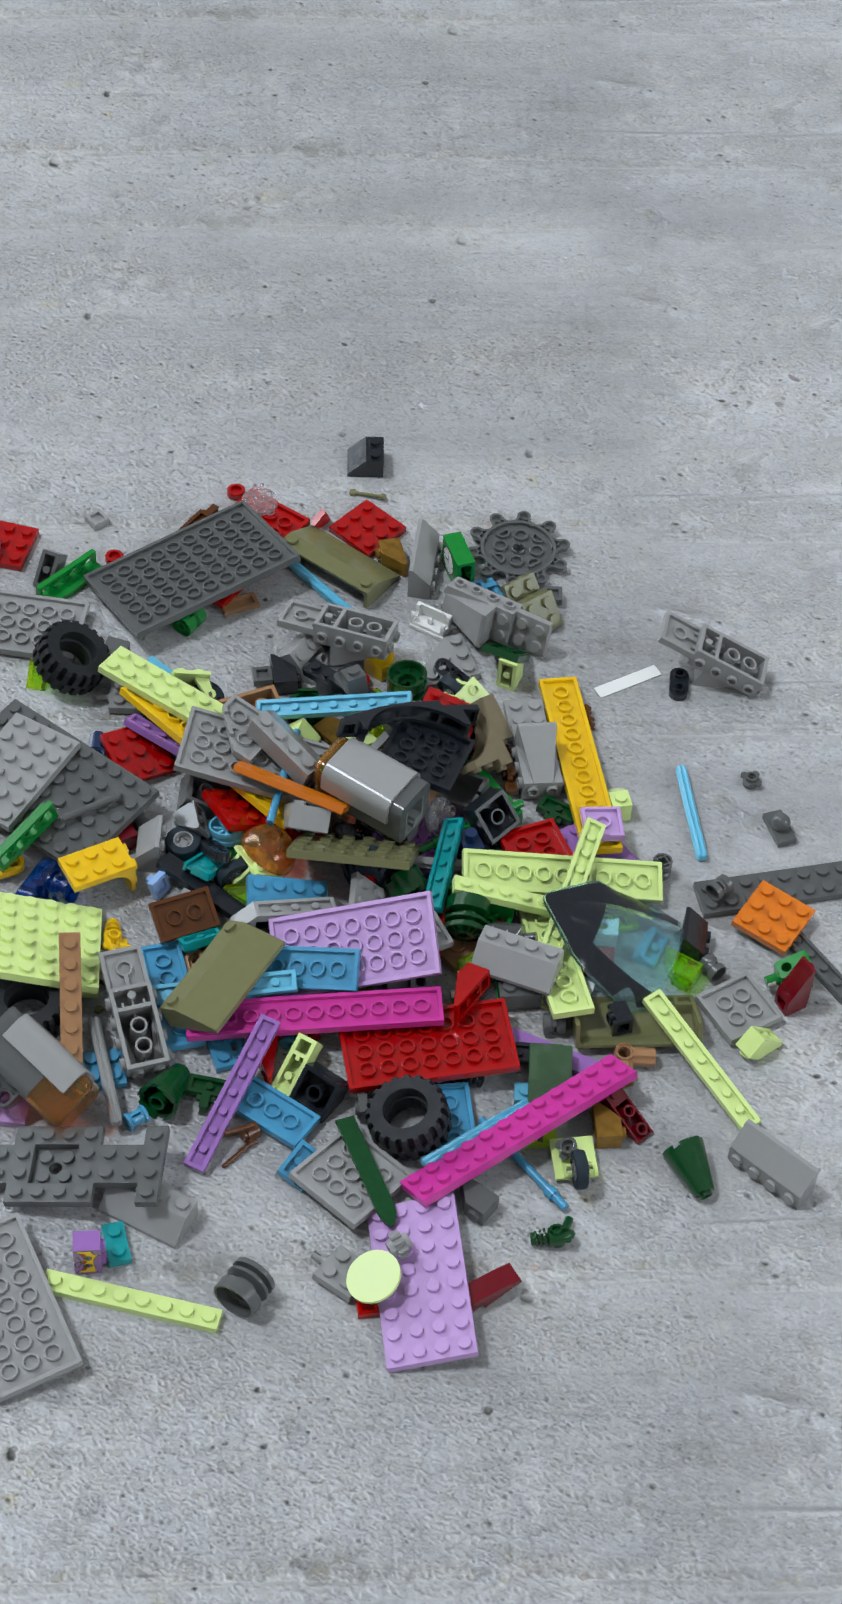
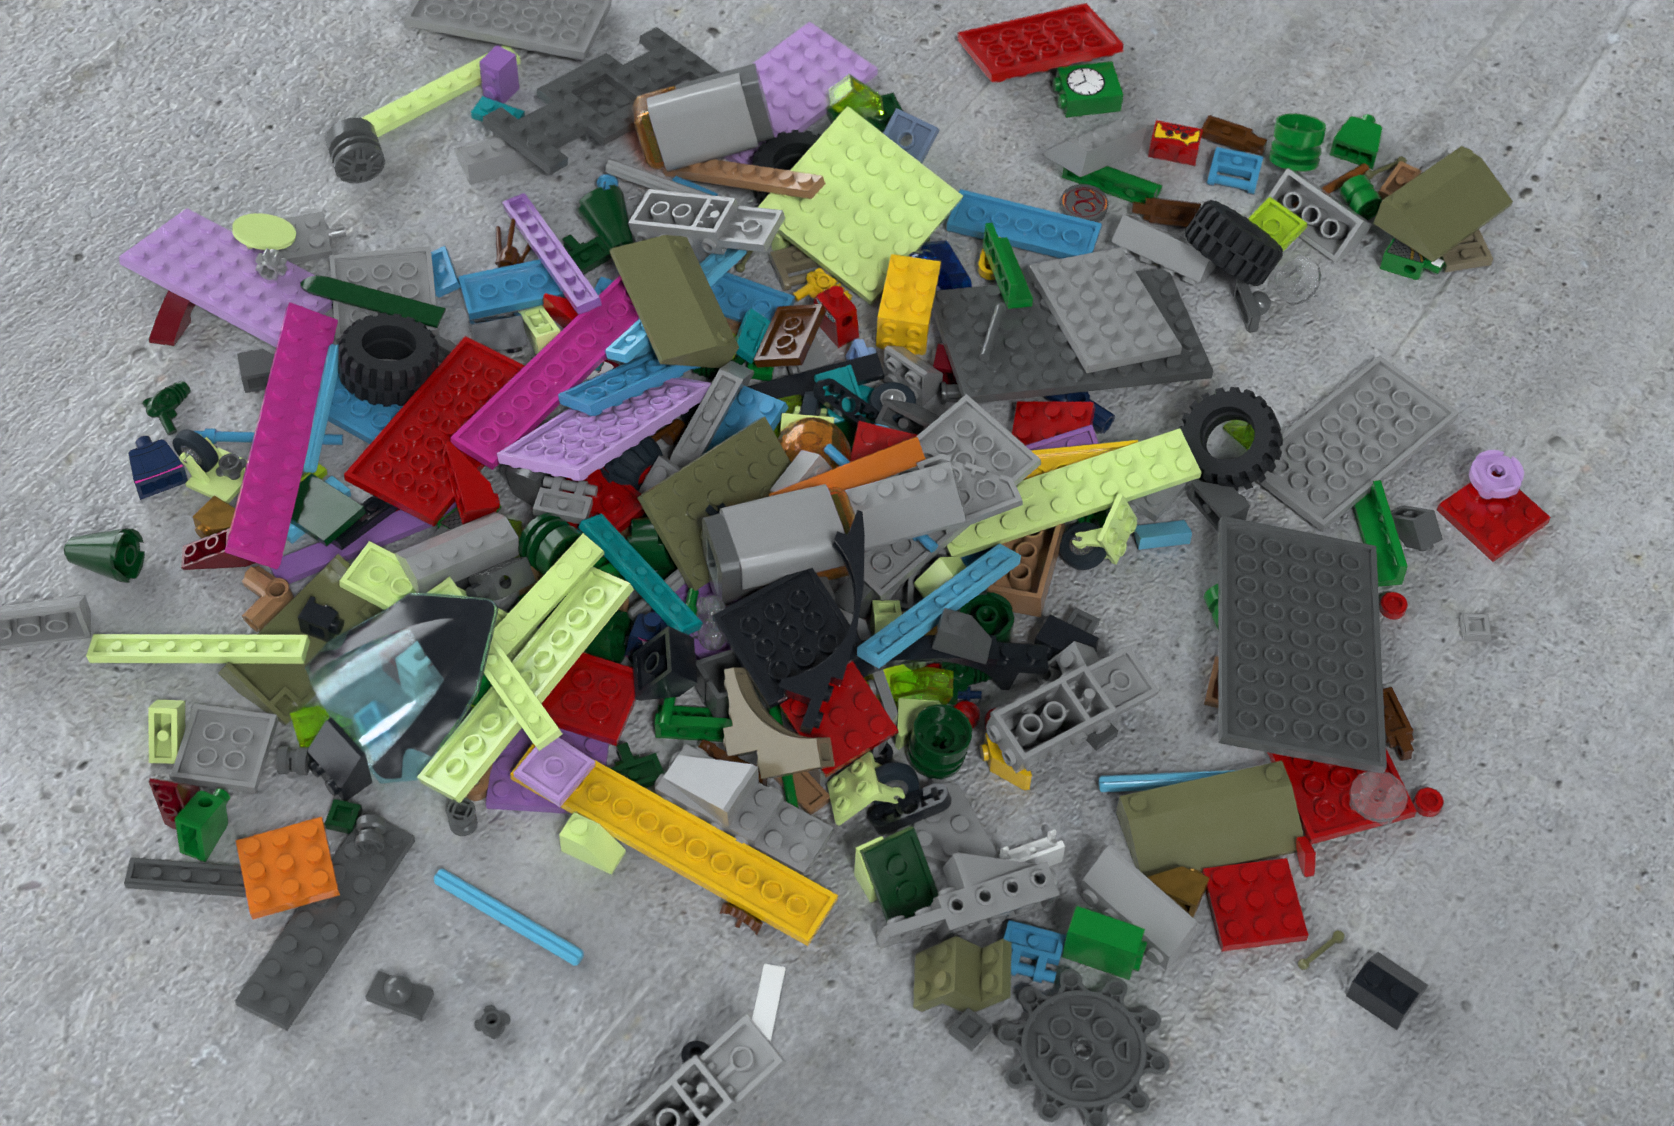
camera: 130 degrees right, 5 degrees up
(137, 908) = (841, 318): none -> red torso
(606, 1199) = (155, 467): none -> dark blue torso
(717, 921) = (343, 816): none -> dark green plate

